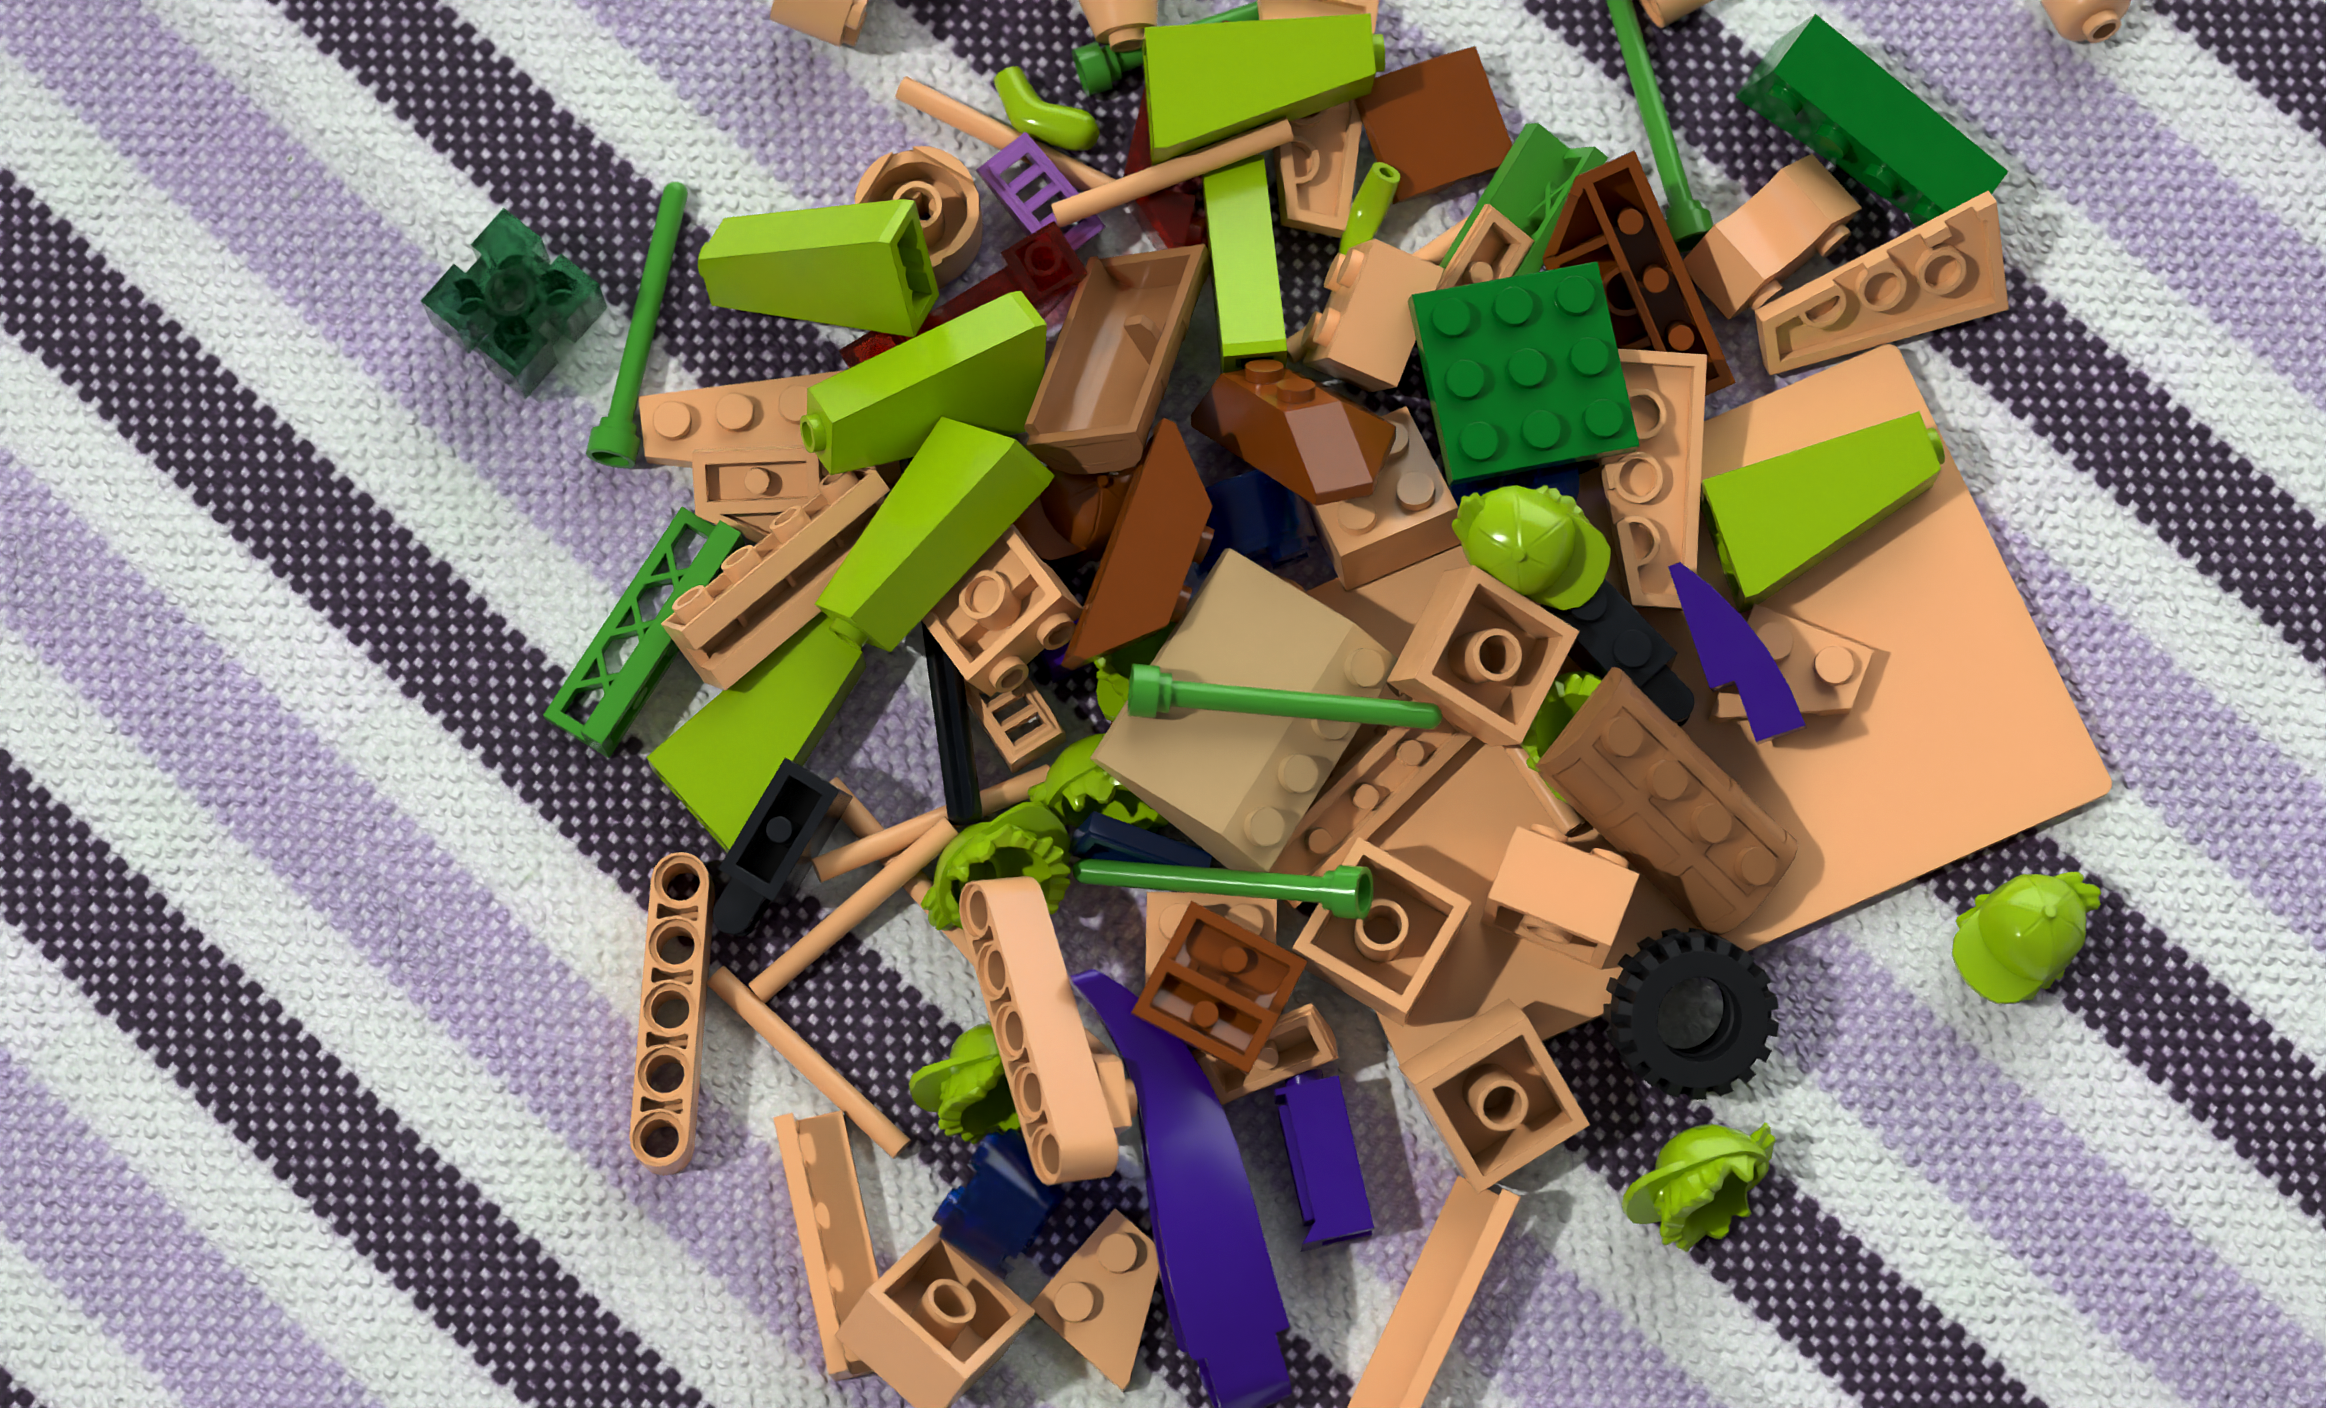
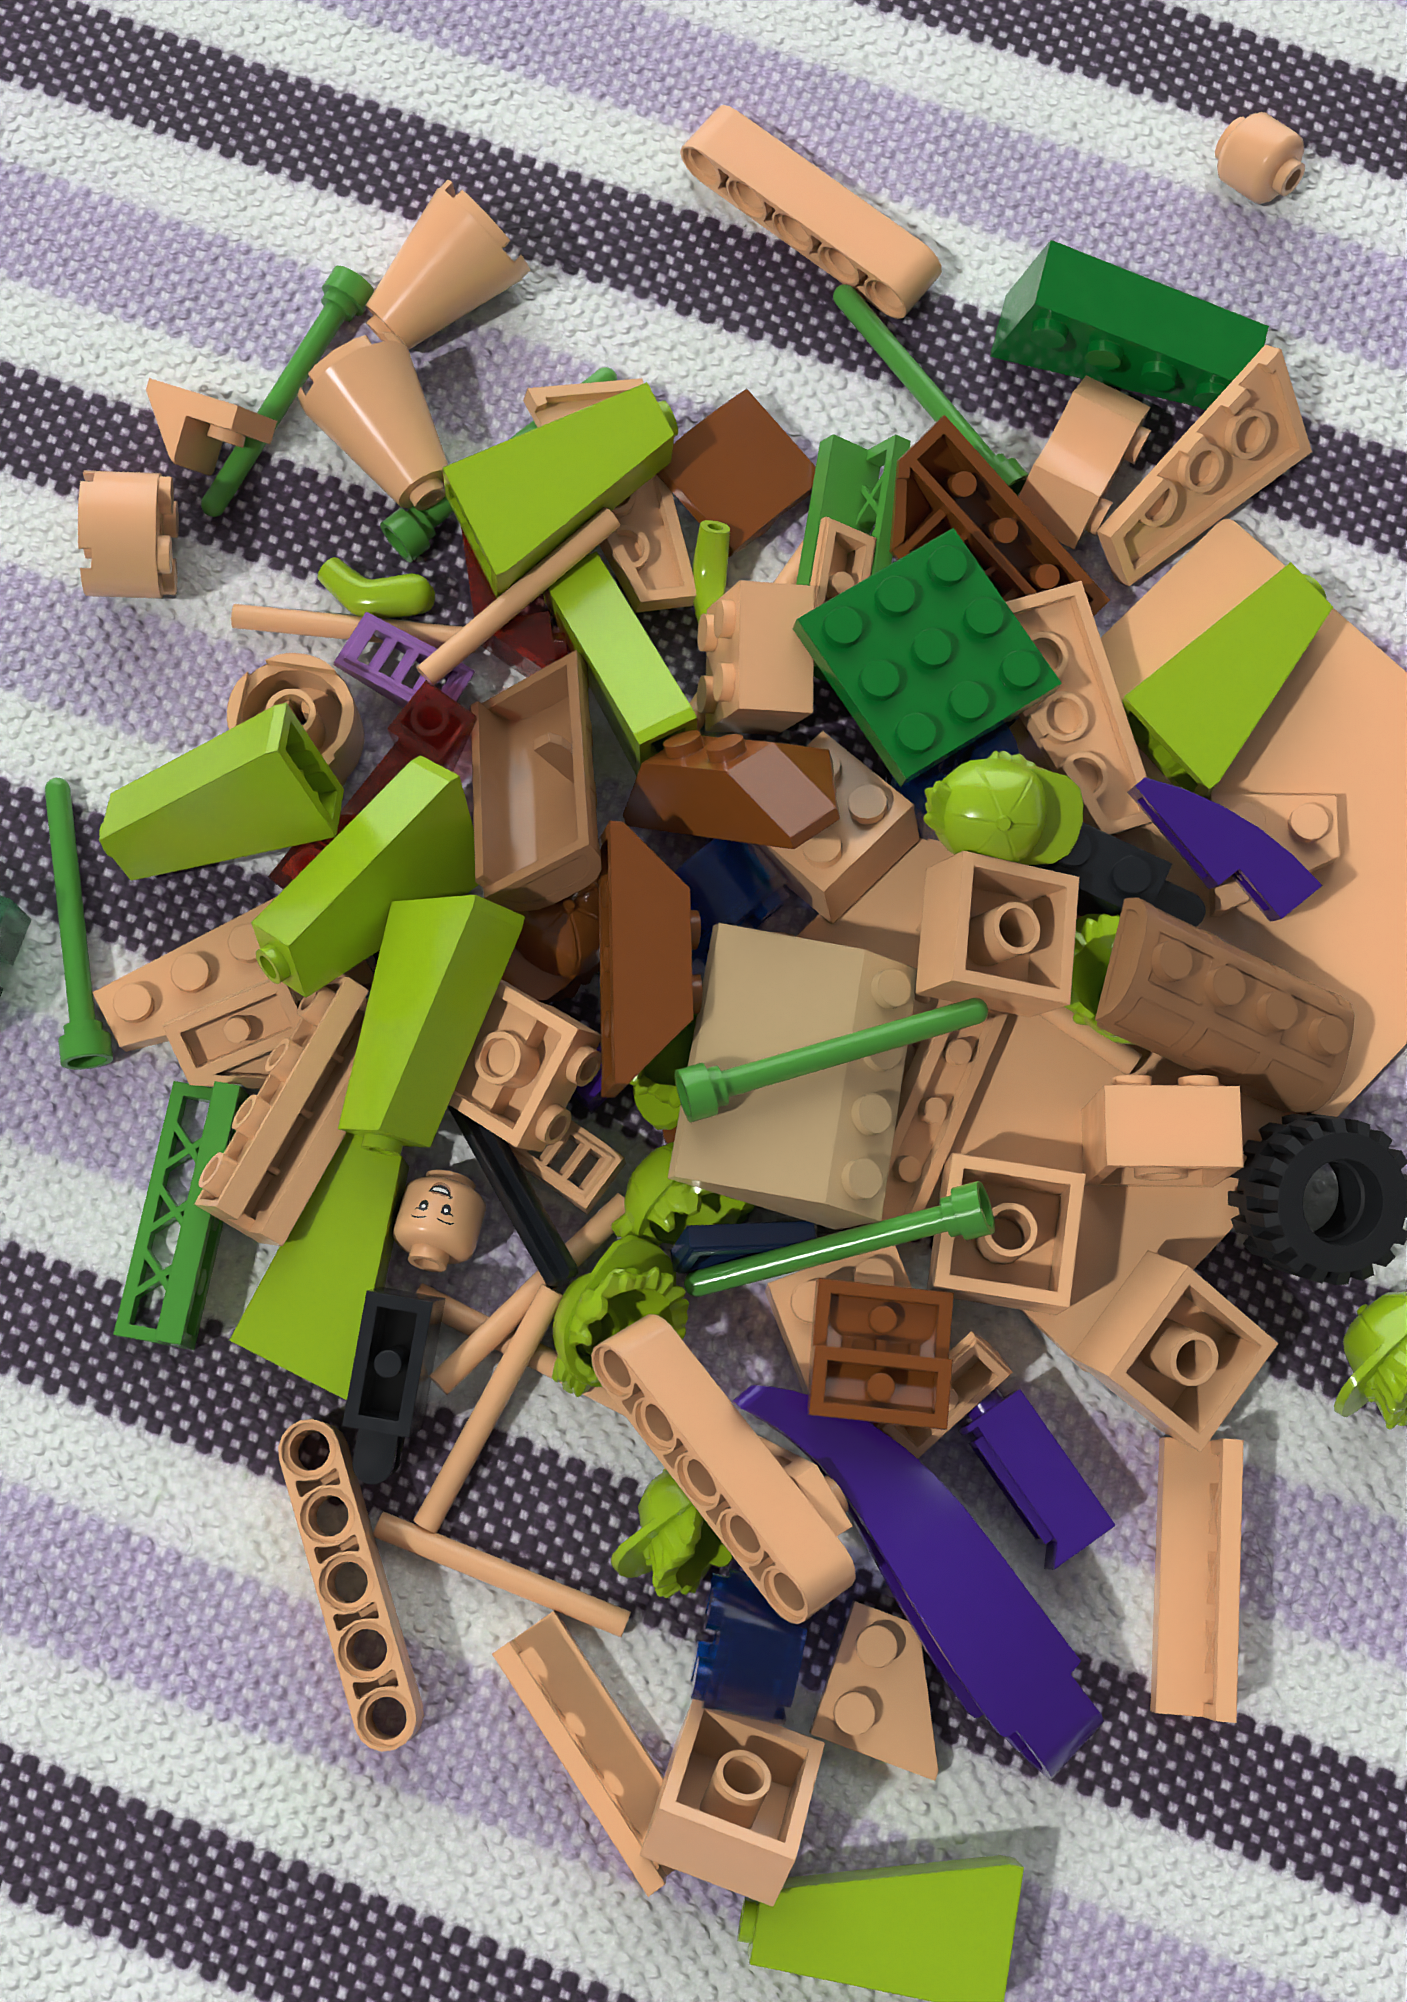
camera: 25 degrees left, 0 degrees up
(874, 724) = (439, 1220): none -> light nougat head

